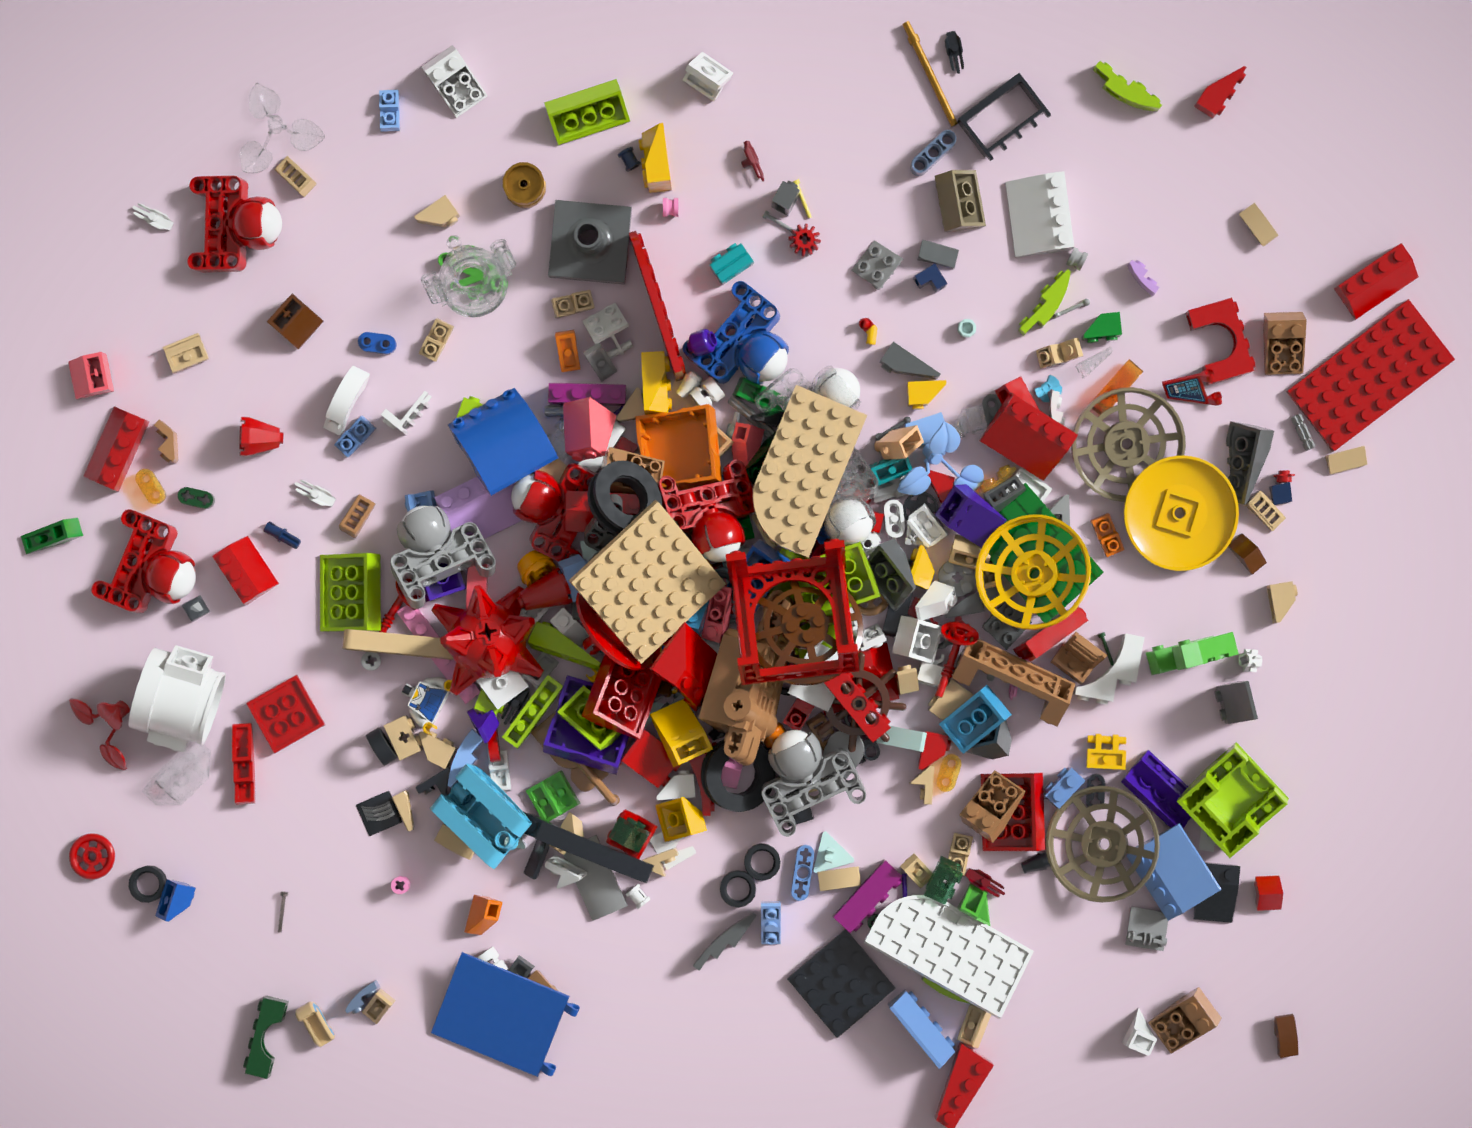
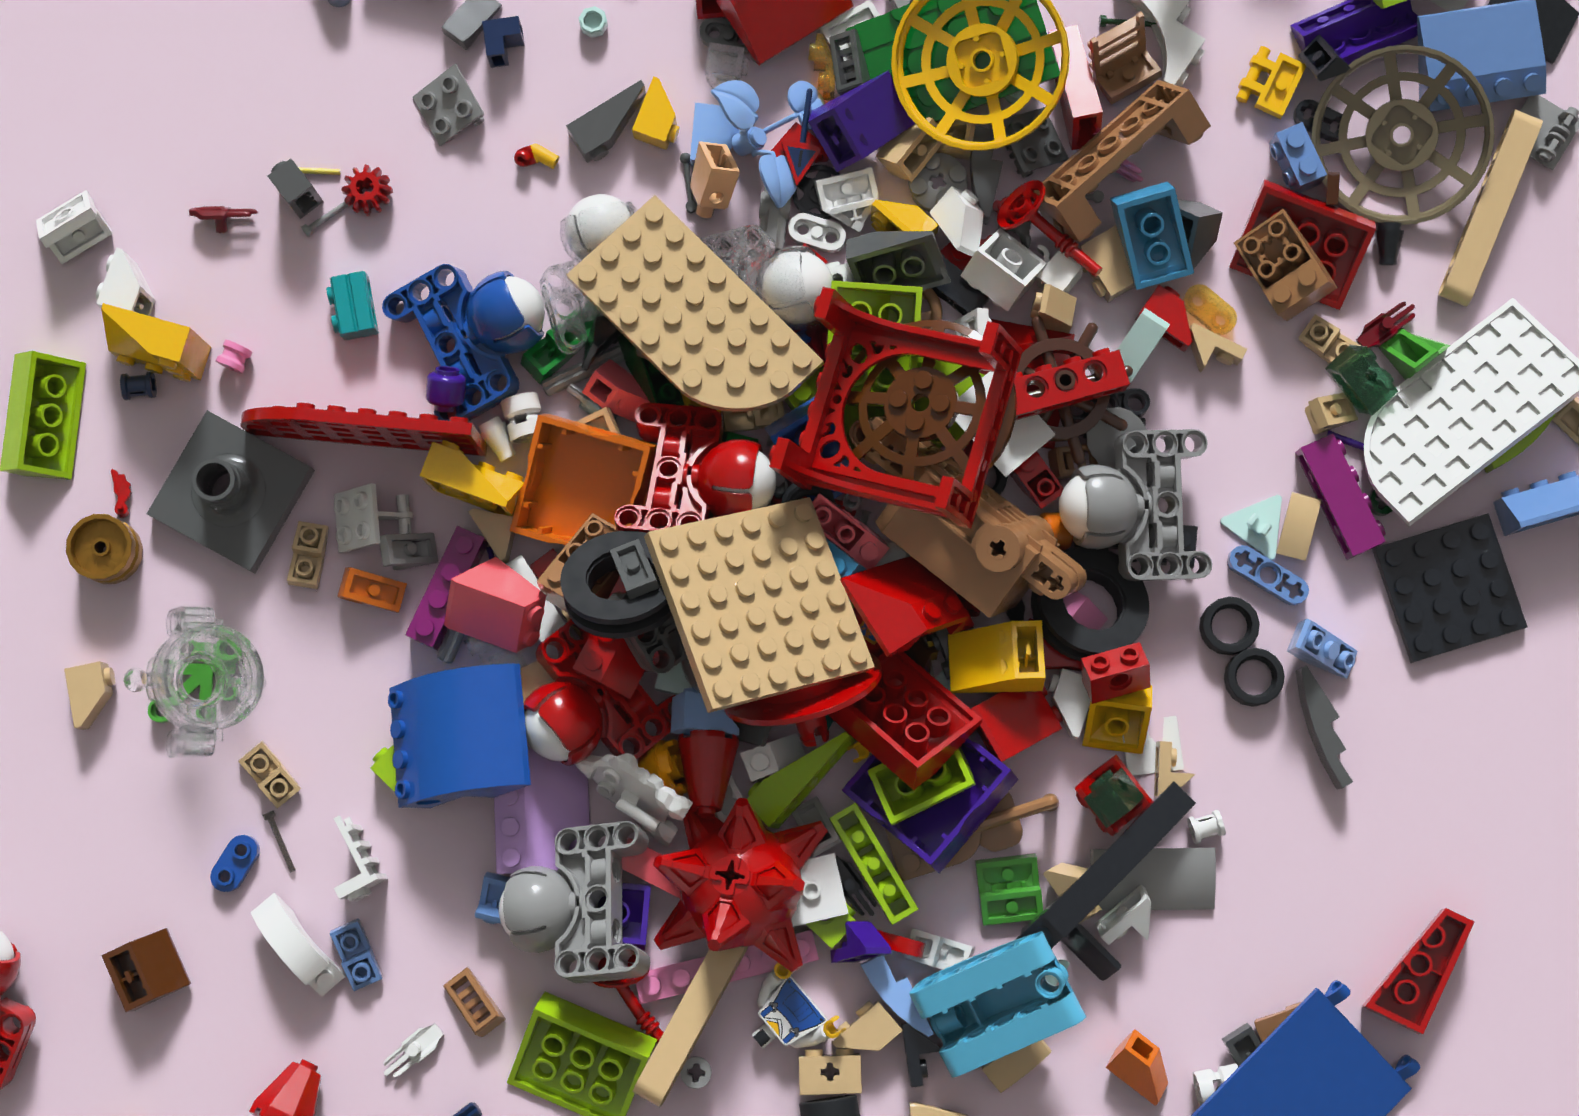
camera: 65 degrees left, 5 degrees down
(412, 351) = (270, 817): none -> clear smoke piece
(514, 558) = (637, 793): none -> white shield
(564, 177) = (122, 490): none -> red piece
(600, 1054) = (1419, 977): none -> red wedge
(635, 502) = (634, 569): none -> dark grey plate
(681, 127) = (125, 285): none -> white slope
(702, 805) = (1115, 672): none -> red brick
(890, 469) = (746, 201): teal brick -> none
(935, 489) = (800, 154): none -> piece
(1053, 815) = (1332, 188): none -> reddish brown tile
(1084, 915) = (1490, 207): none -> tan beam
(1130, 778) = (1323, 59): none -> black slope

